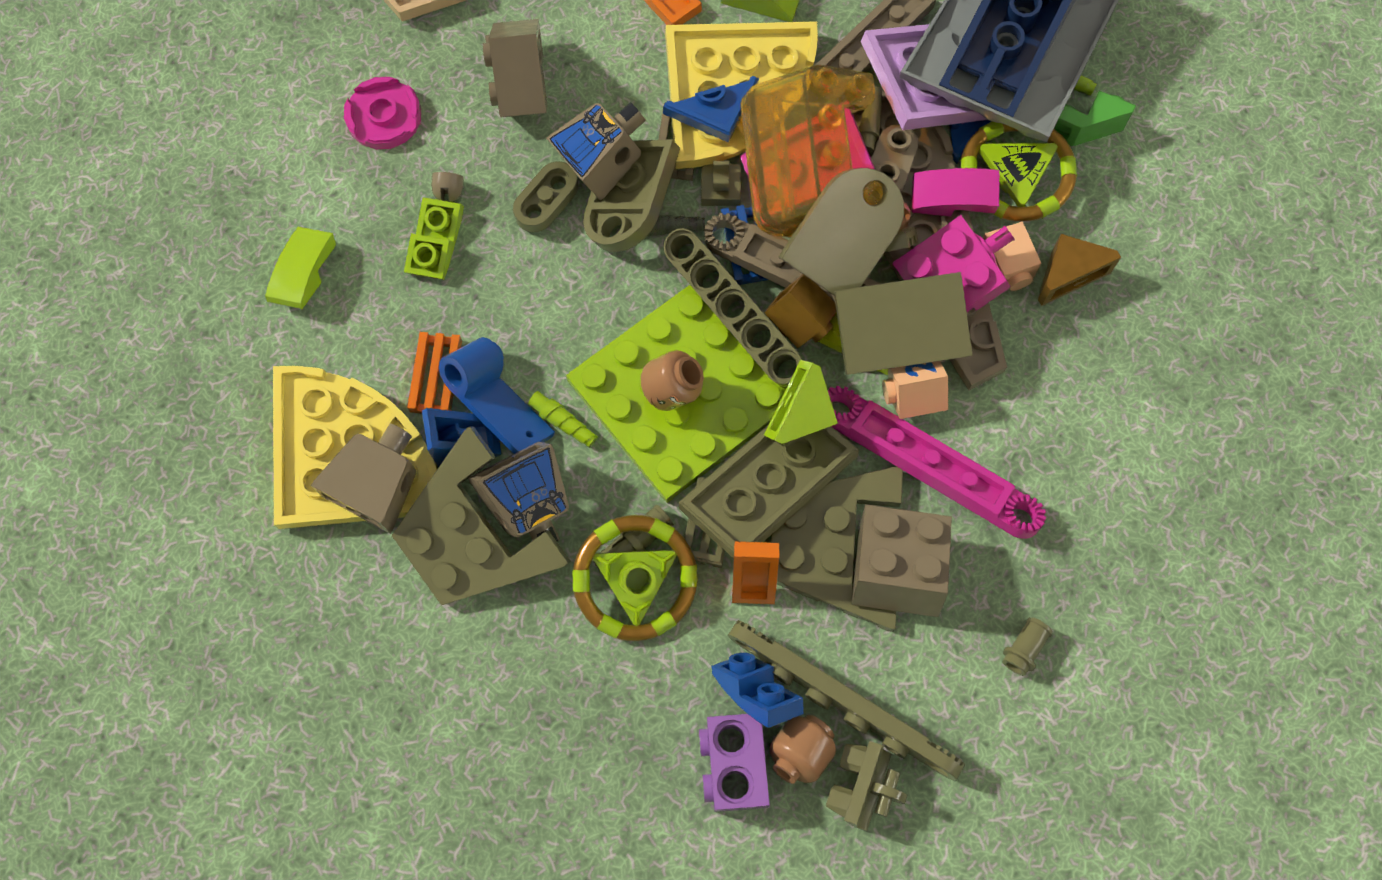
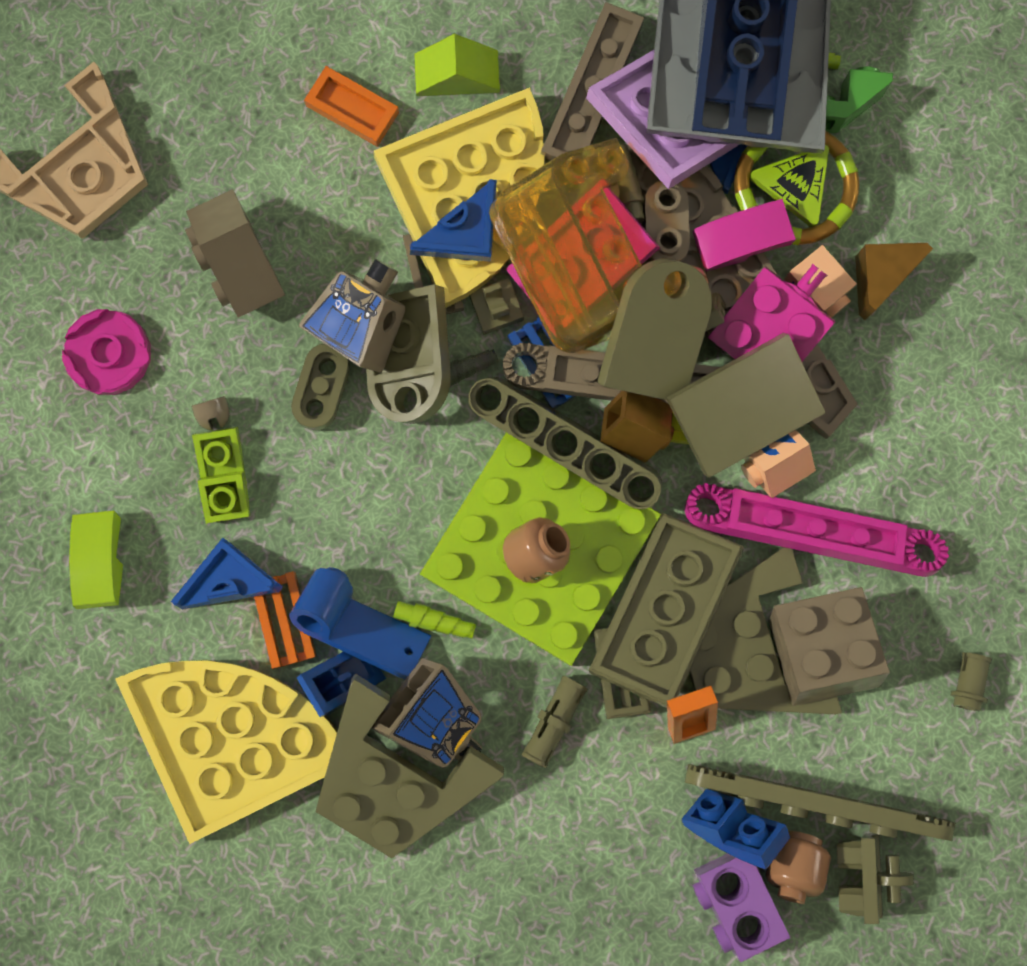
camera: 25 degrees left, 10 degrees up
(370, 477) = (271, 764): dark tan torso -> none
(398, 319) = (225, 577): none -> blue tile
(634, 577) = (573, 759): lime piece -> none
(803, 406) = (676, 531): lime slope -> none

